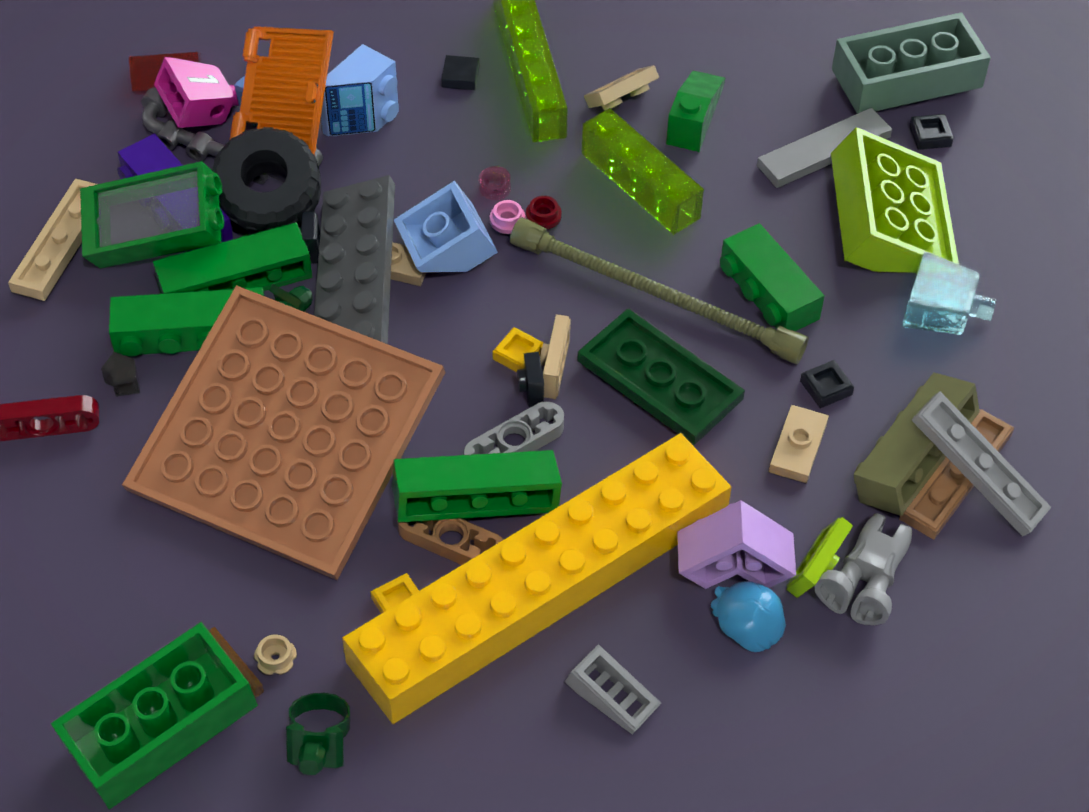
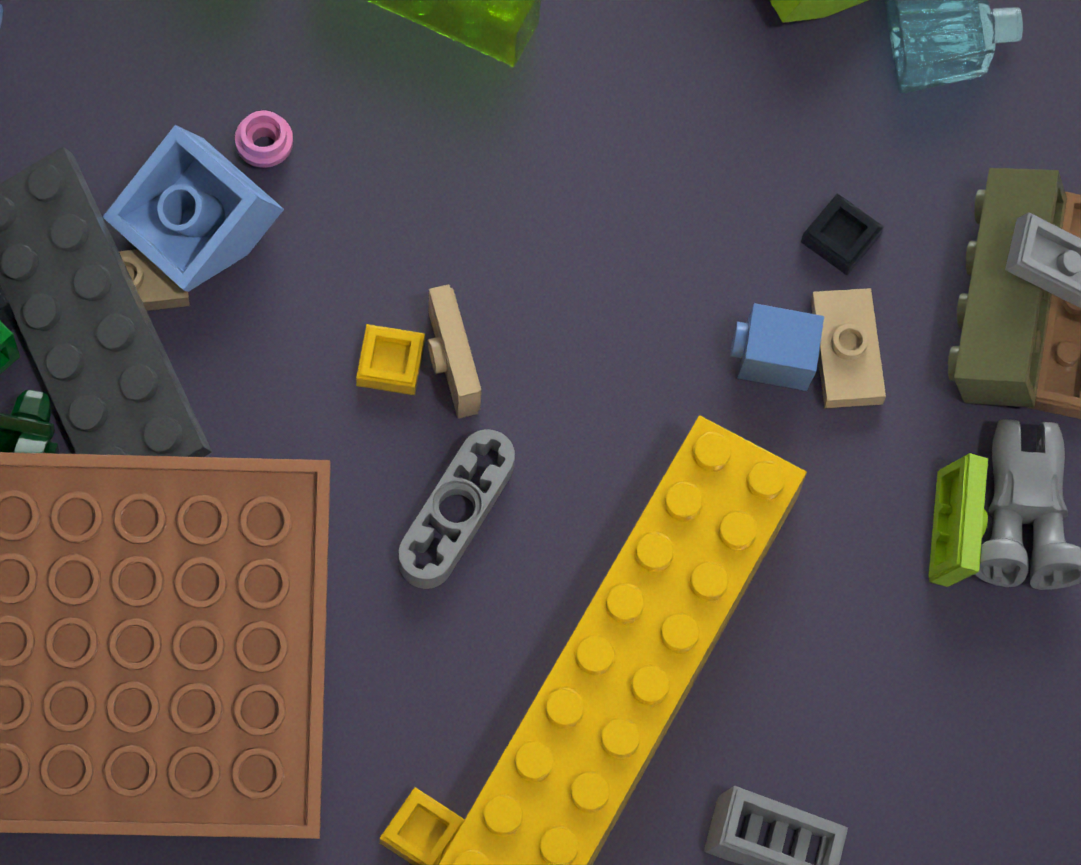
camera: 30 degrees left, 15 degrees up
(457, 552) = (430, 681): medium nougat beam -> none
(475, 485) = (450, 615): green brick -> none
(498, 175) = (209, 68): clear pink bush -> none
(531, 378) = (438, 403): black plate -> none
(544, 211) = (309, 96): dark red plate -> none
(661, 376) = (612, 319): dark green plate -> none
(736, 543) = (848, 557): lavender brick -> none
(750, 614) = (902, 644): dark azure hair -> none
(753, 423) = (778, 346): none -> medium blue brick
(771, 279) = (694, 96): green brick -> none
(782, 342) = (759, 194): olive hose -> none

